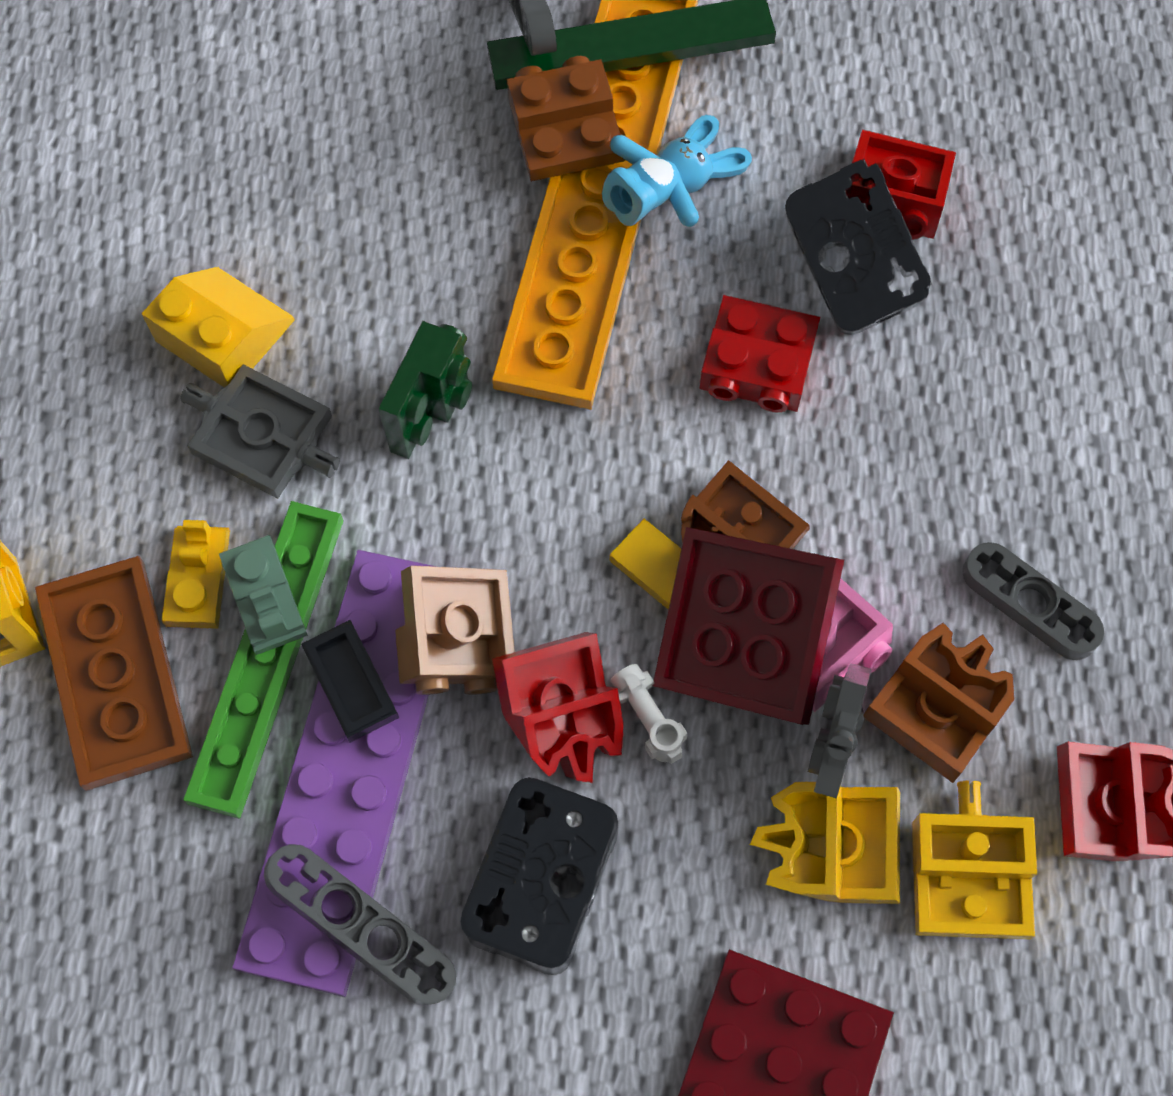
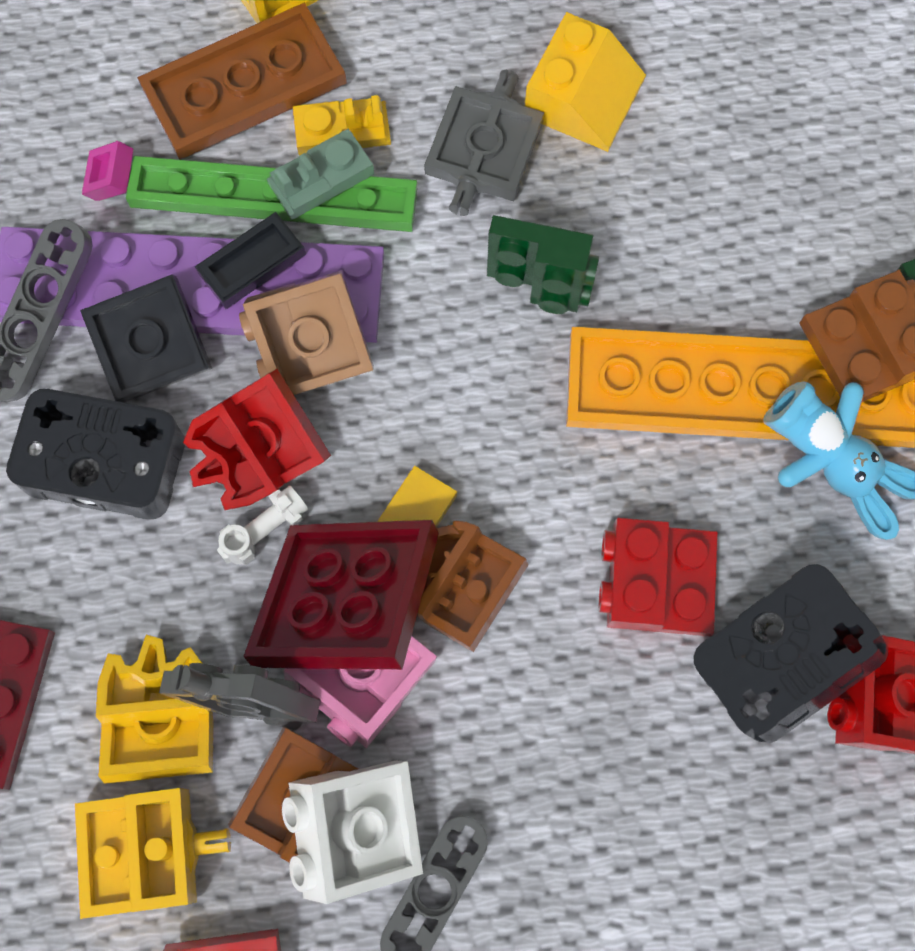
camera: 80 degrees right, 5 degrees up
(193, 834) = (107, 171): none -> dark pink plate
(416, 808) = (146, 339): none -> black tile
(980, 649) = (352, 831): none -> white plate

